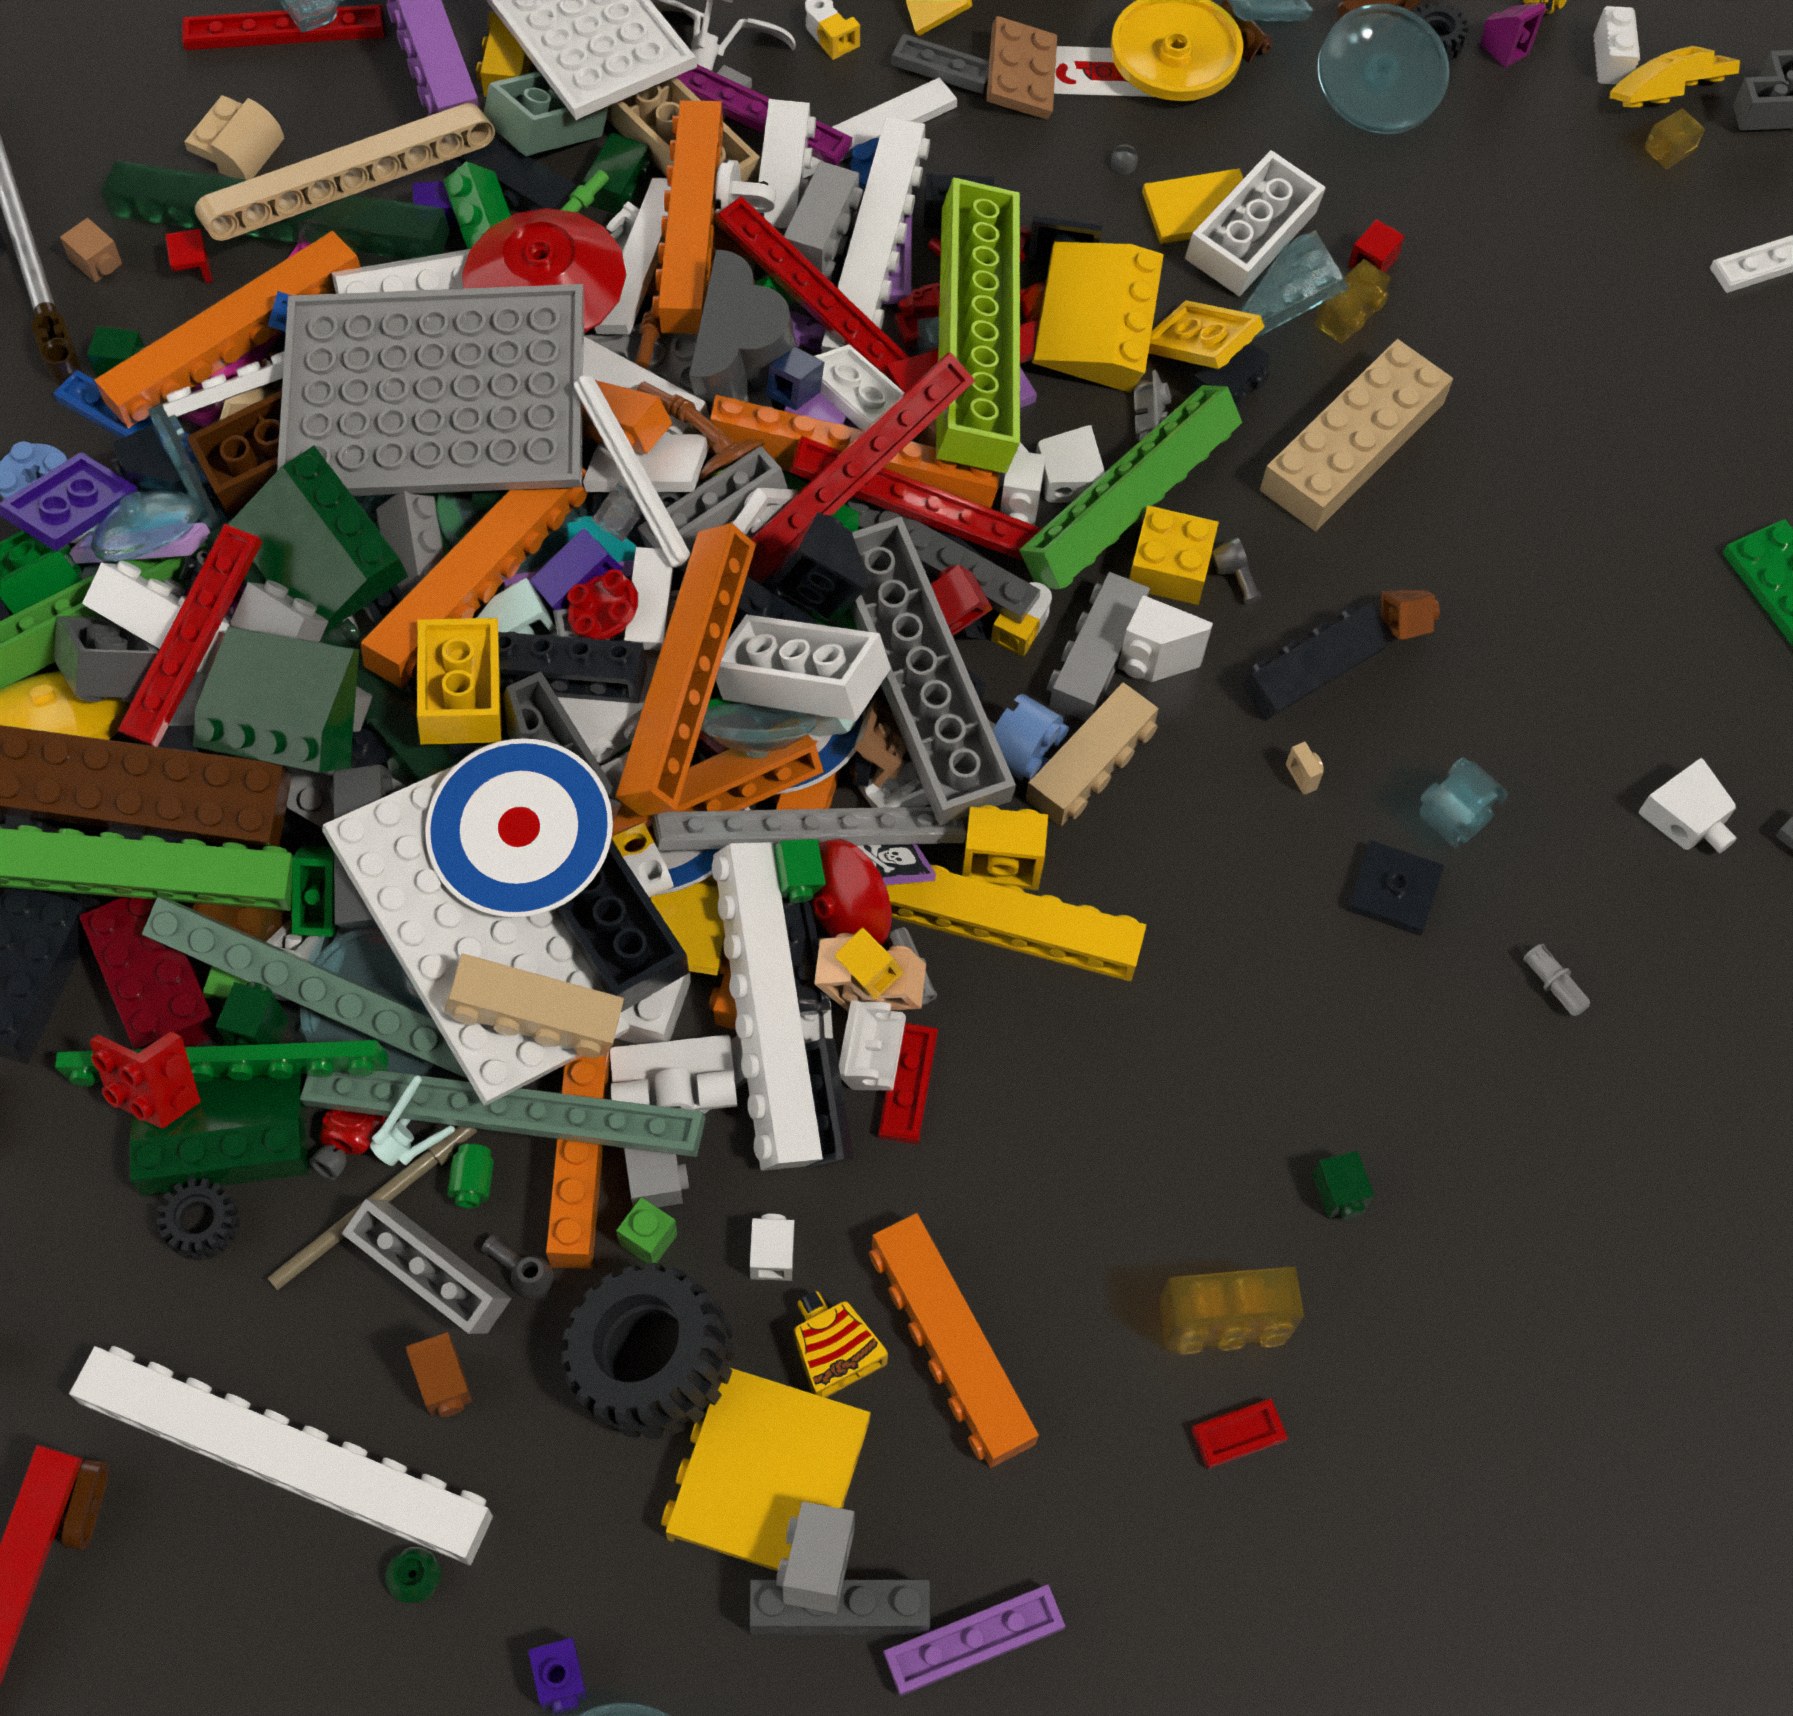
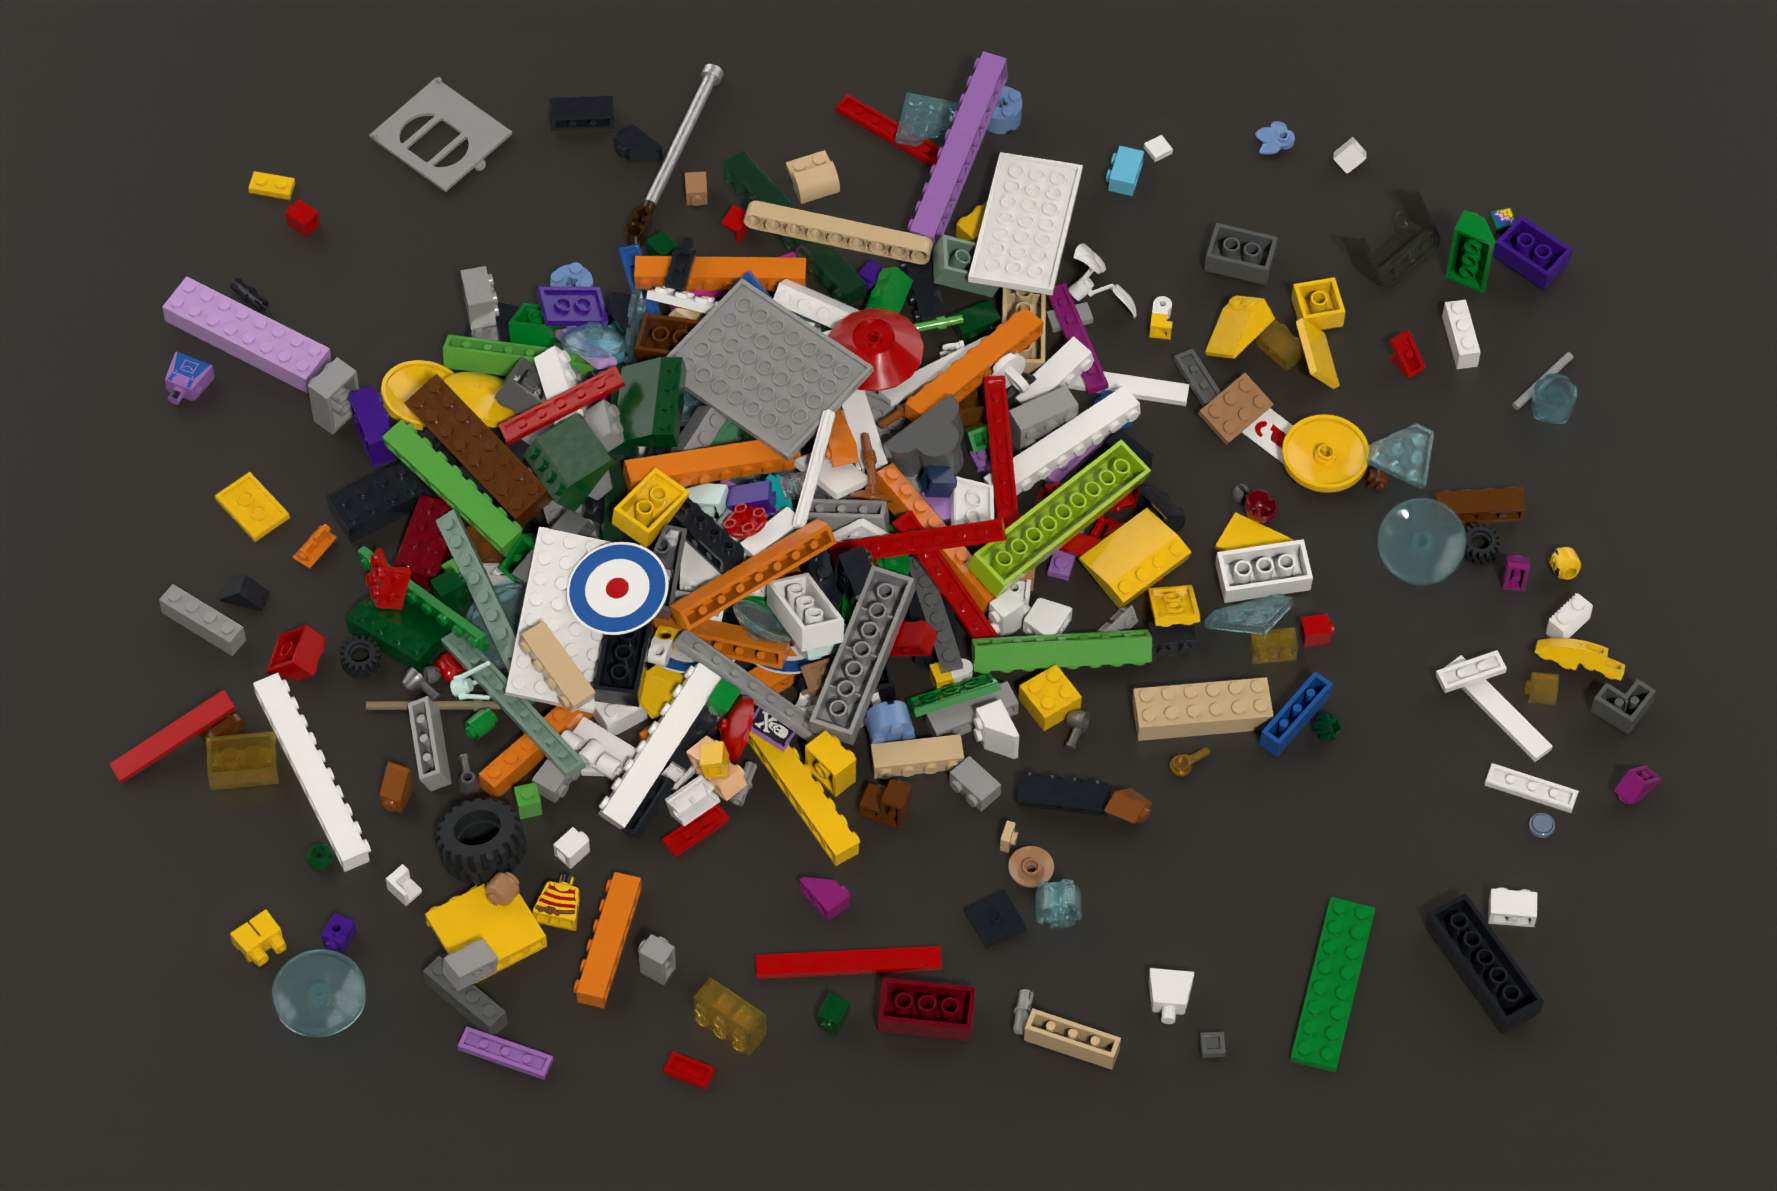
camera: 45 degrees right, 5 degrees down
(94, 1292) = (297, 653): none -> red slope
(158, 1529) = (242, 760): none -> clear yellow brick
(176, 347) = (681, 266): none -> black hinge
(313, 1190) = (414, 680): none -> flat silver bar
(584, 1513) = (402, 886): none -> white panel
(751, 1397) = (502, 889): none -> medium nougat head
(1053, 1311) = (657, 958): none -> light grey brick
(1062, 639) = (952, 694): none -> green tile
(1127, 846) = (887, 804): none -> reddish brown brick
(1168, 158) = (1260, 507): none -> dark red hair
(1169, 1032) = (825, 896): none -> magenta slope
(1196, 733) = (974, 784): none -> light grey brick
(1280, 1100) = (848, 962): none -> red tile
(1377, 771) = (1033, 858): none -> medium nougat dish
(1401, 518) = (1182, 764): none -> pearl gold plate
(1453, 1077) = (926, 1009): none -> dark red brick
(1467, 360) = (1296, 714): none -> blue brick
(1510, 349) = (1327, 726): none -> dark green gear
(1589, 173) = (1471, 671): none -> white plate
(1649, 196) = (1506, 717): none -> white tile
(1659, 963) = (1072, 1039): none -> tan brick

